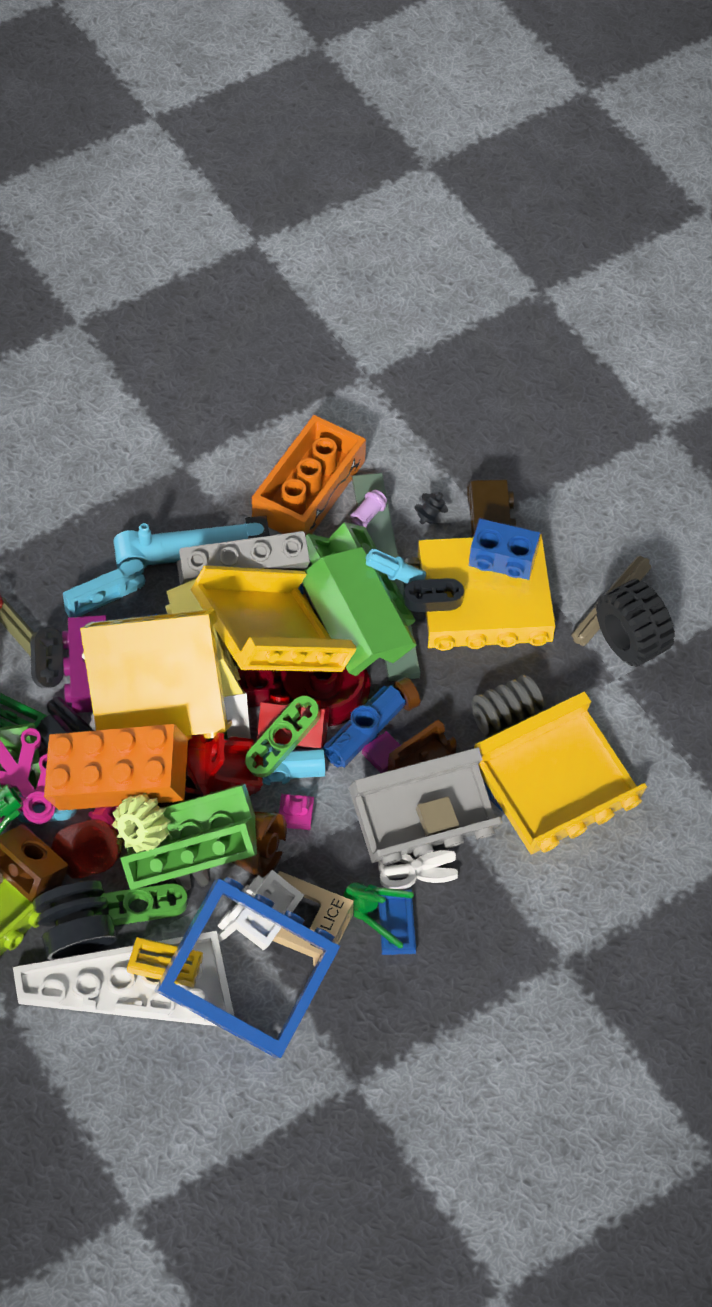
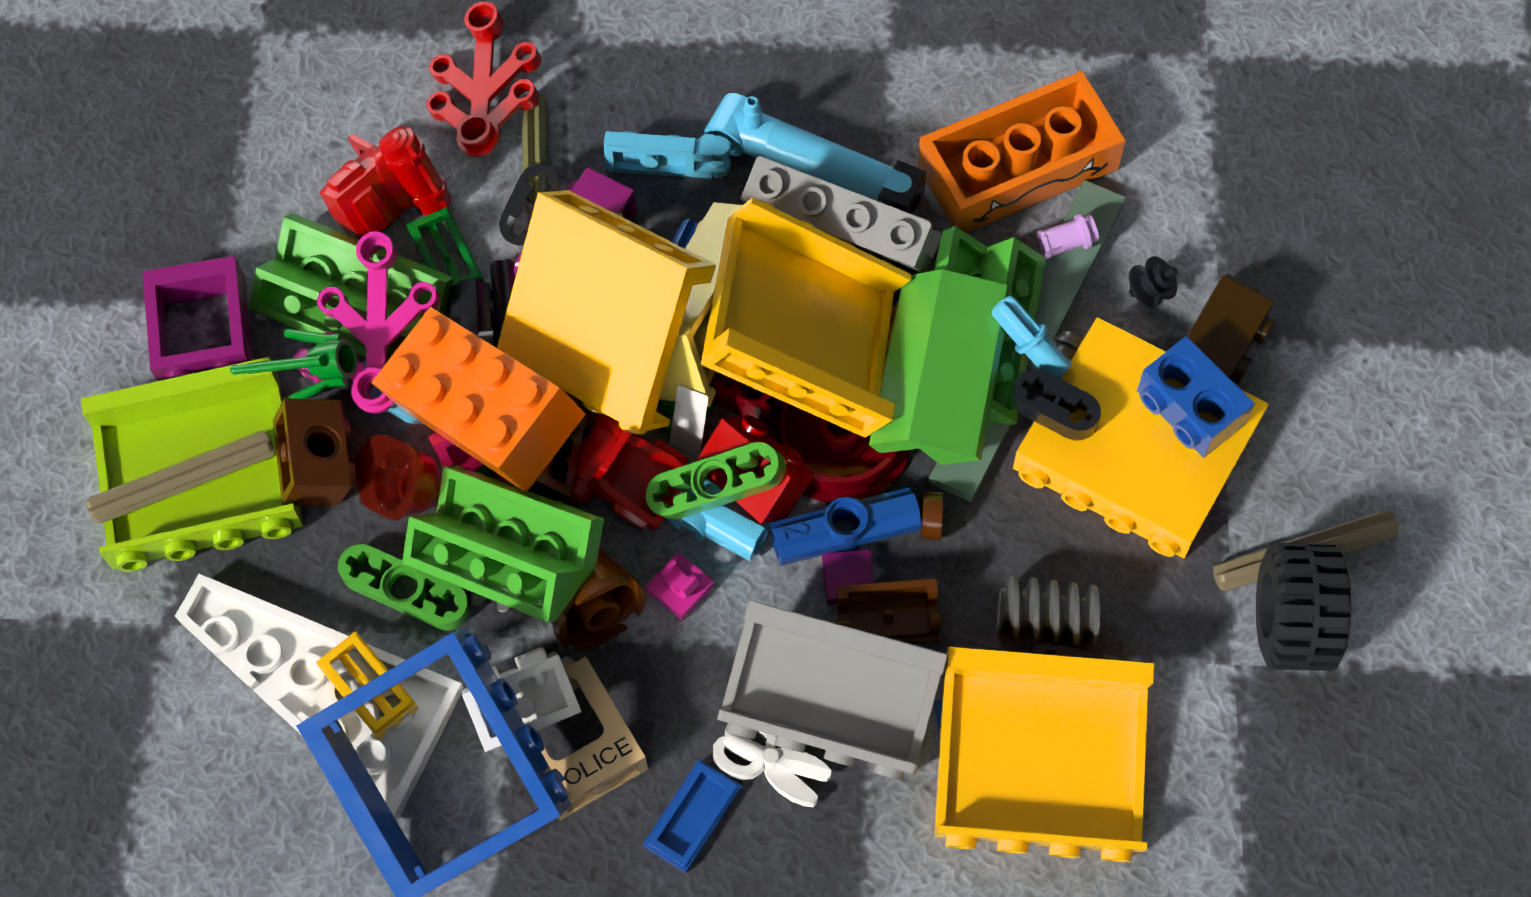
camera: 40 degrees right, 10 degrees up
(73, 913) = (296, 562): black wheel -> none
(141, 822) = (451, 489): yellowish green gear -> none
(367, 899) = (668, 763): green plant -> none
(437, 816) = (836, 712): dark tan tile -> none

